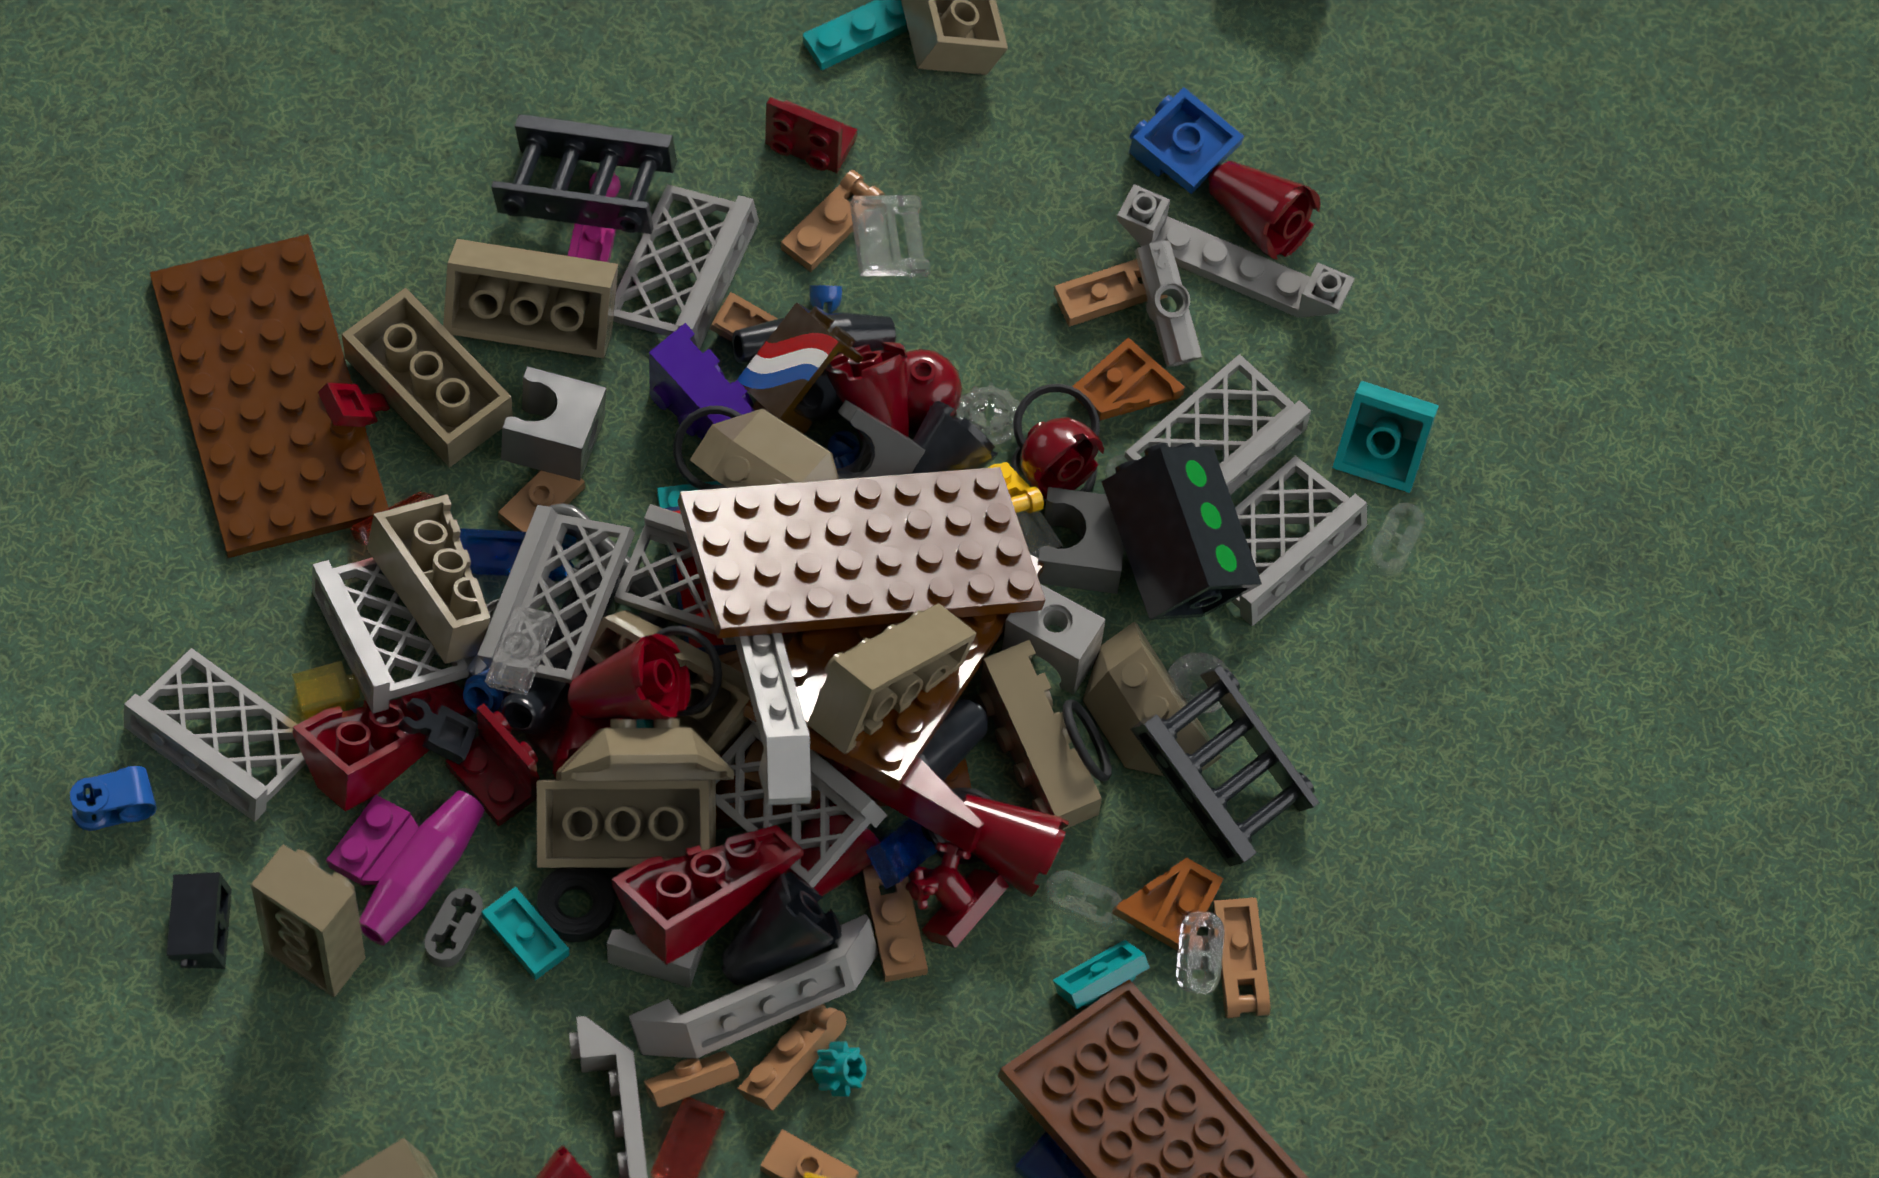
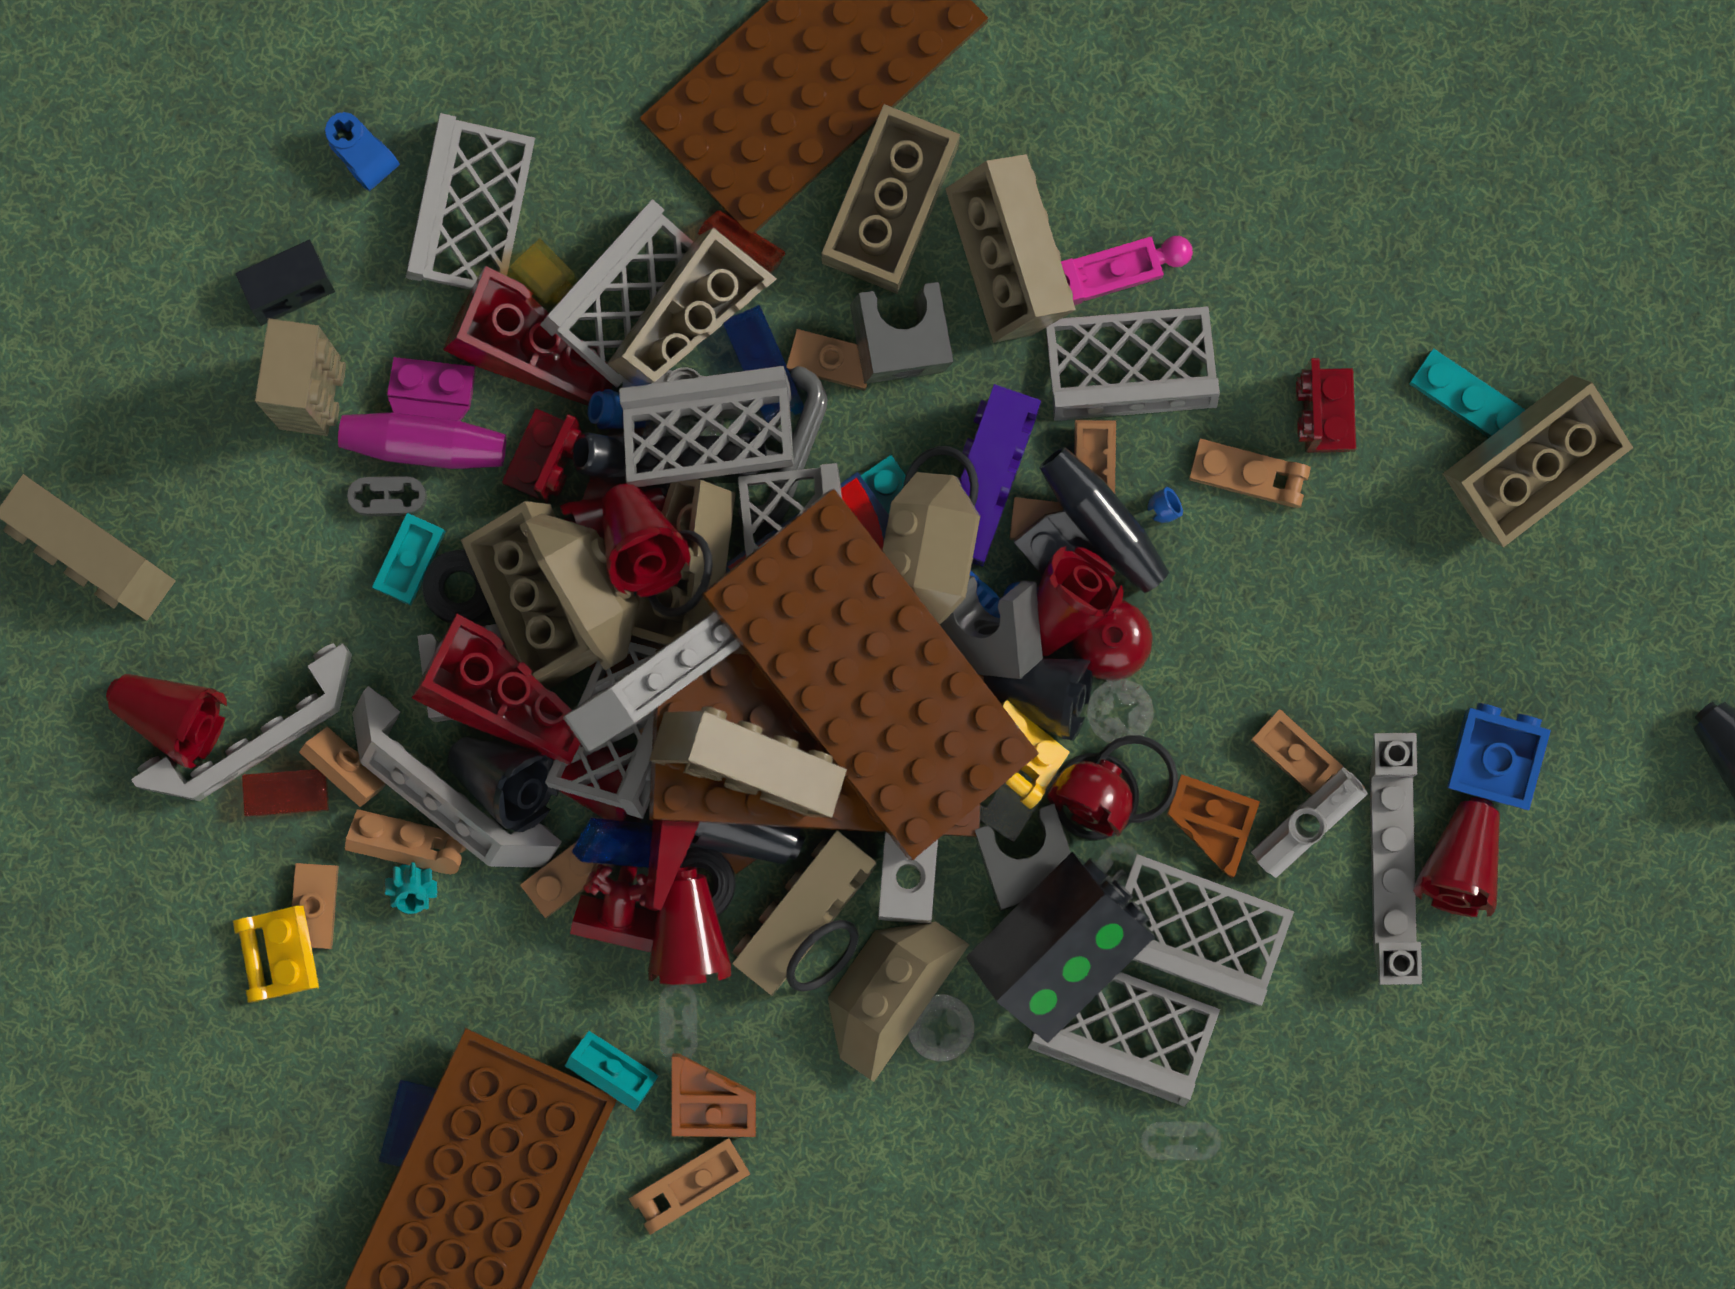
camera: 70 degrees right, 20 degrees up
(349, 406) = (824, 147): dark red plate -> none
(445, 730) = (550, 396): black plate -> none
(520, 650) = (637, 424): clear plate -> none
(586, 143) = (1197, 205): black fence -> none
(794, 361) = (1053, 519): panel -> none
(878, 236) = (1245, 524): clear plate -> none
(1185, 770) = (830, 1059): black fence -> none
(1200, 952) = (674, 1155): clear beam -> none
(1385, 436) = (1280, 1084): teal slope -> none

